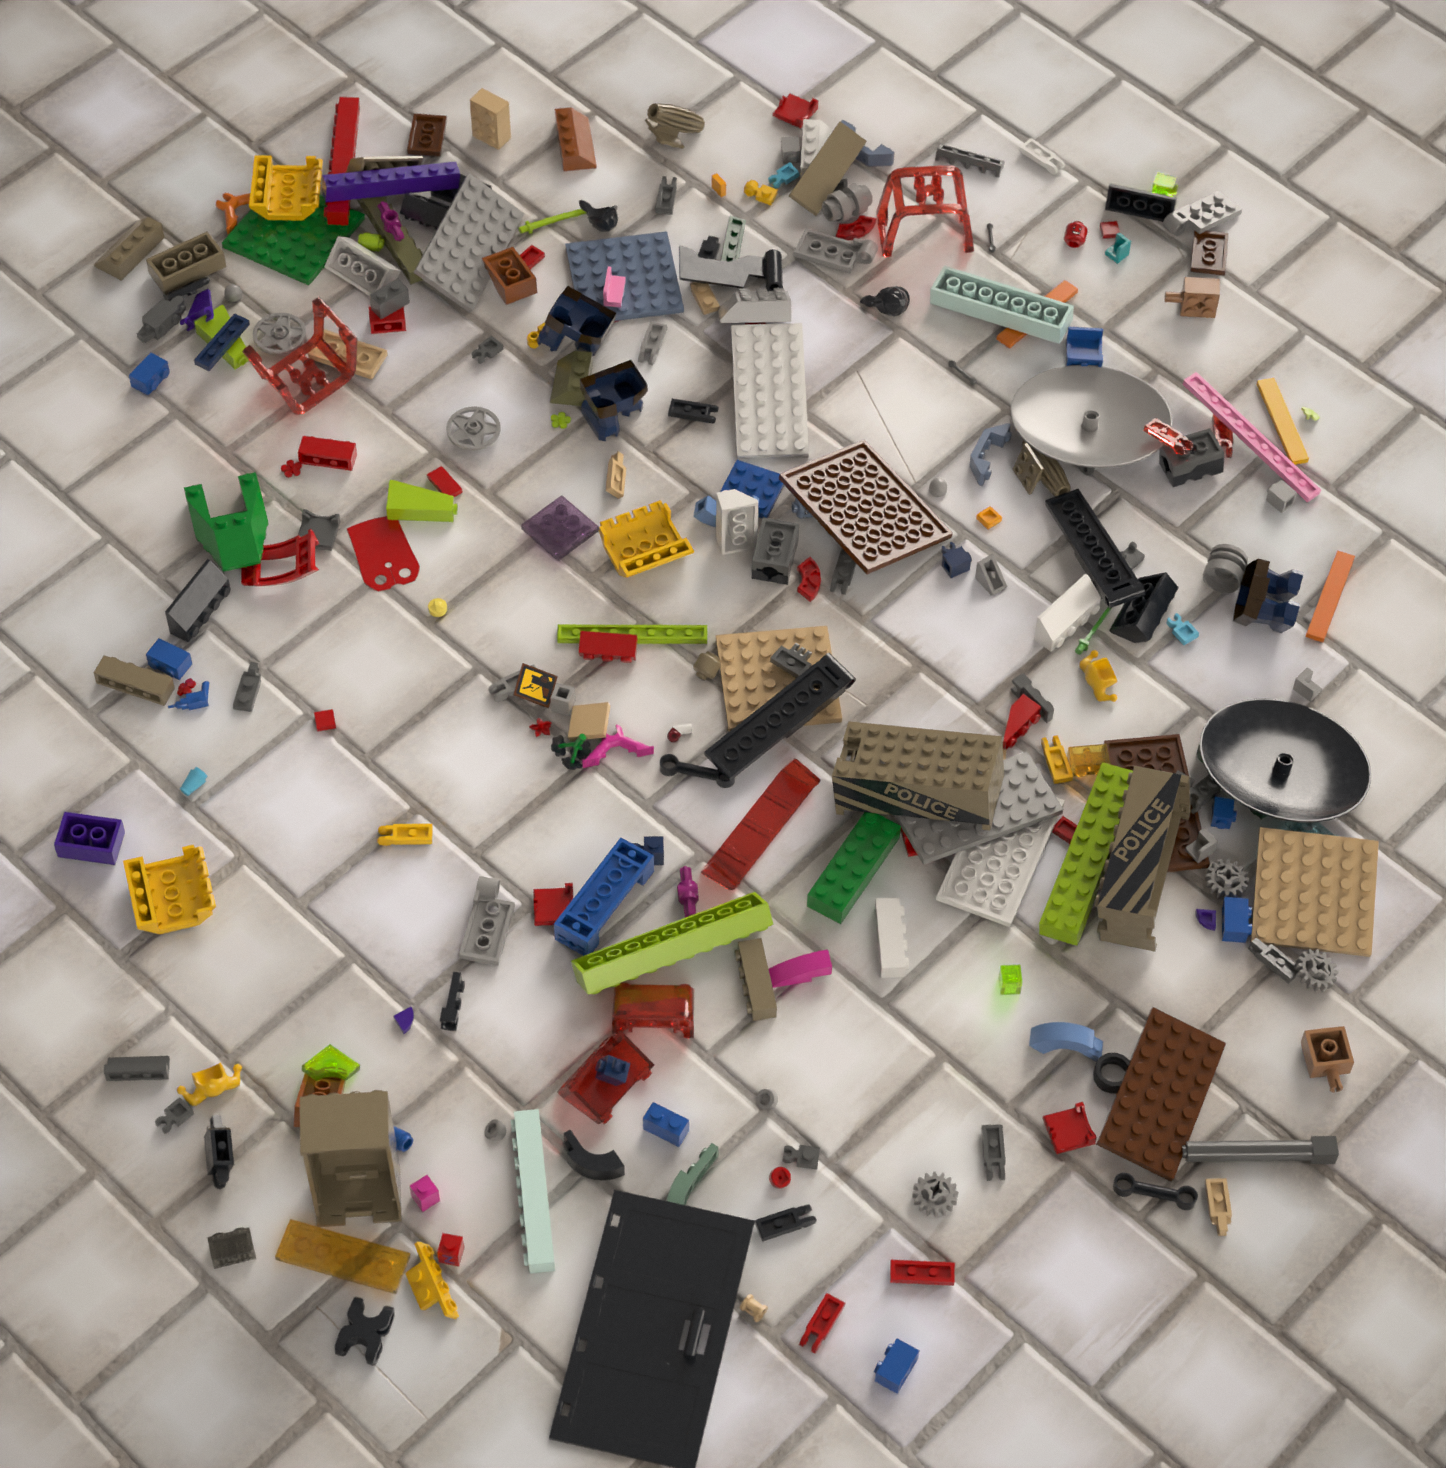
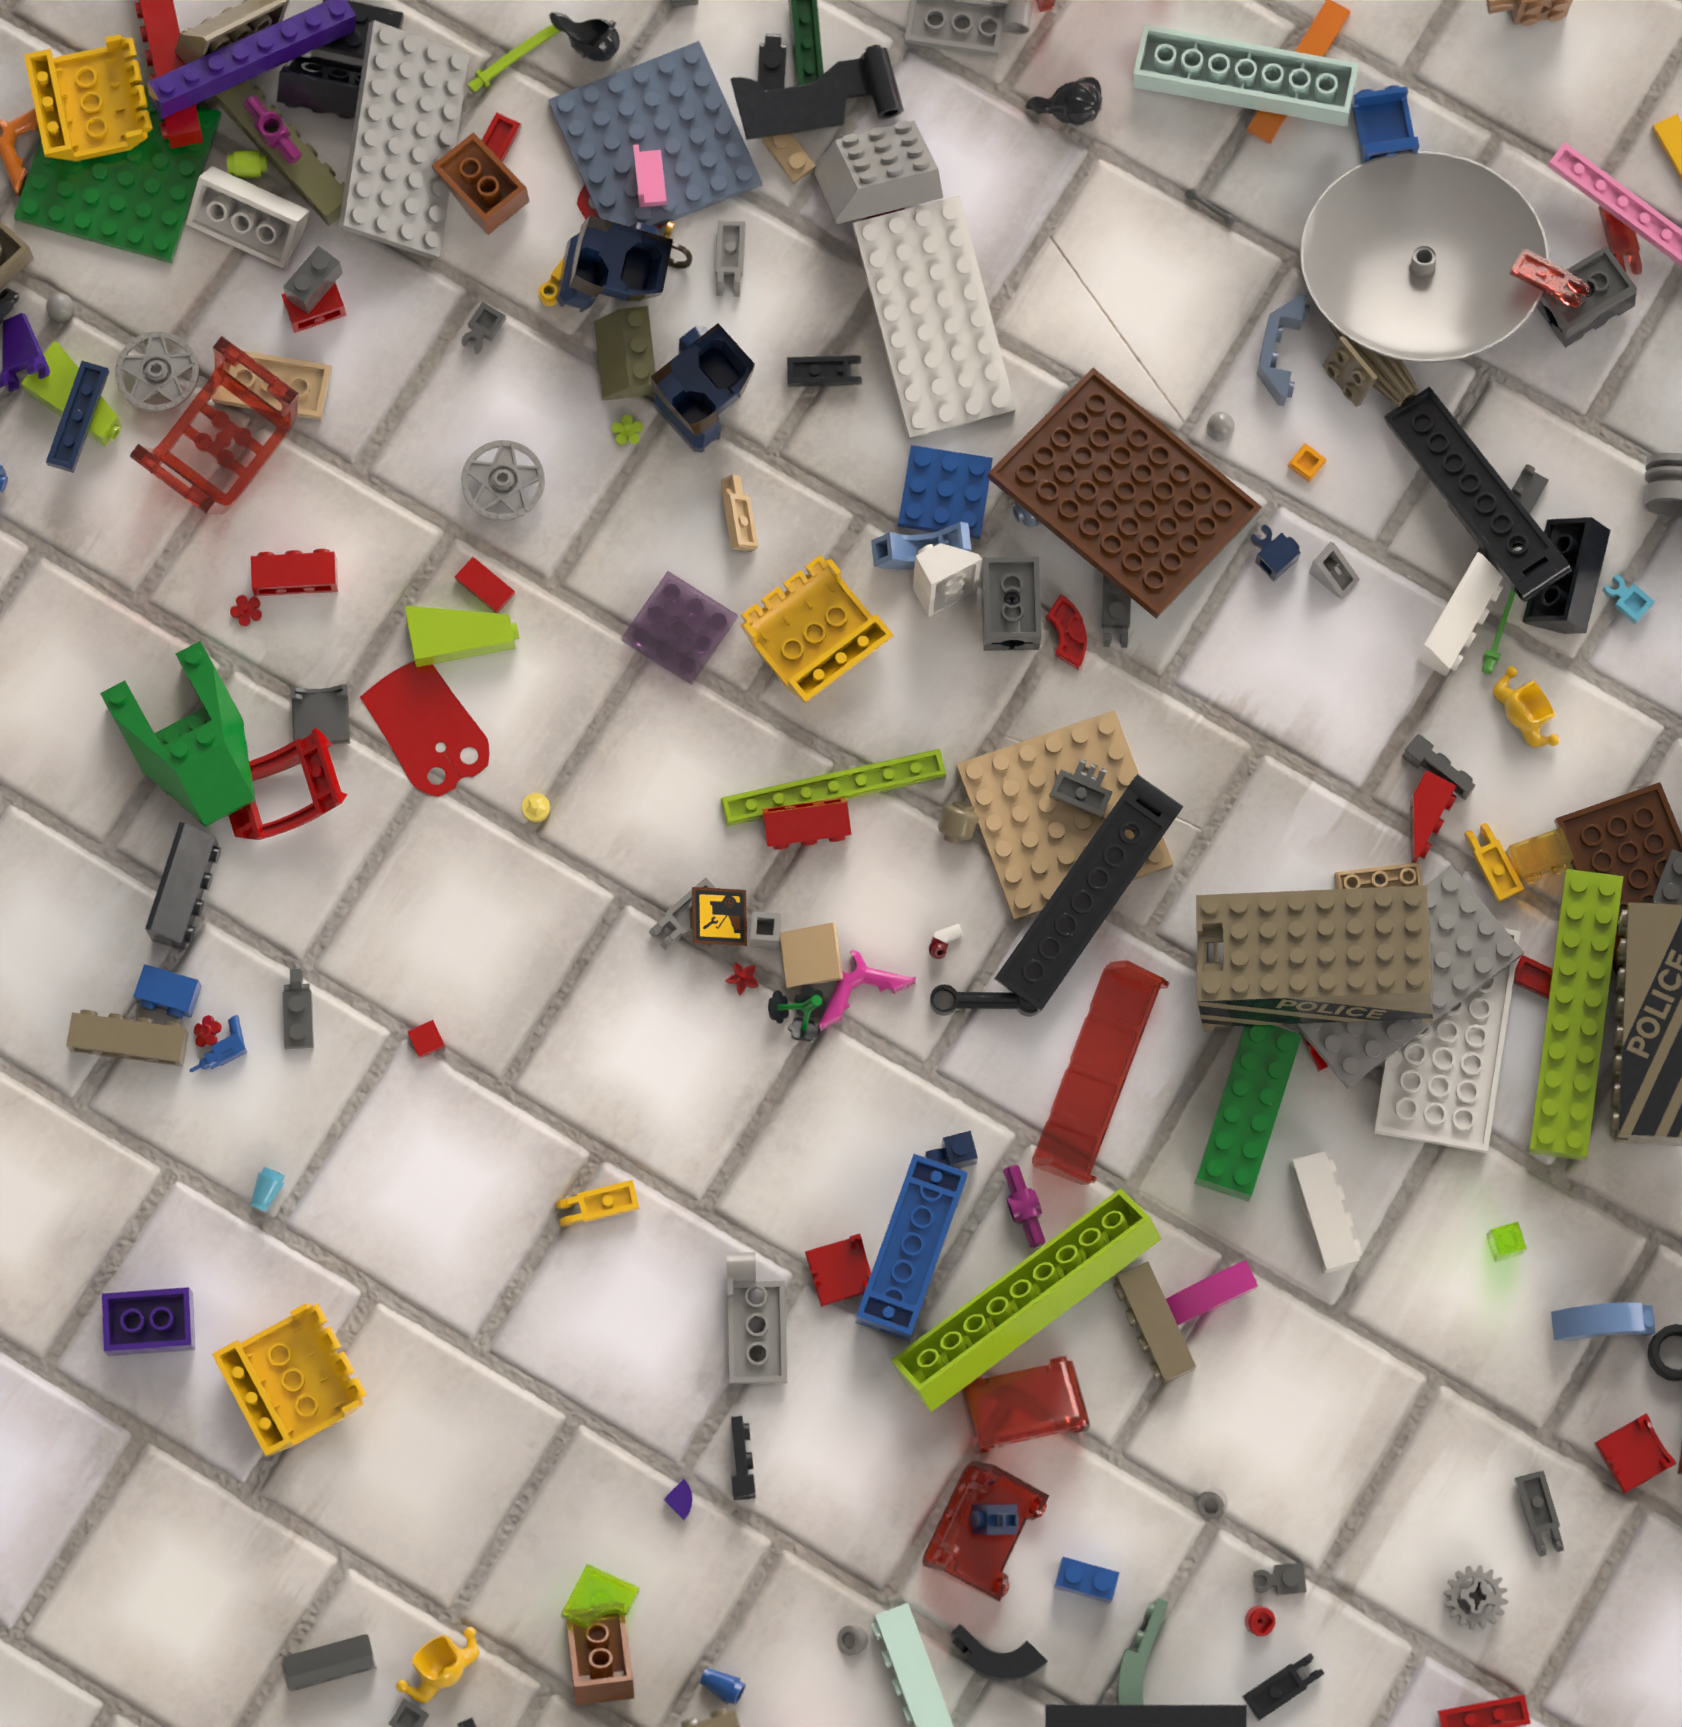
camera: 15 degrees left, 20 degrees up
(618, 324) = (673, 263): none -> dark brown piece

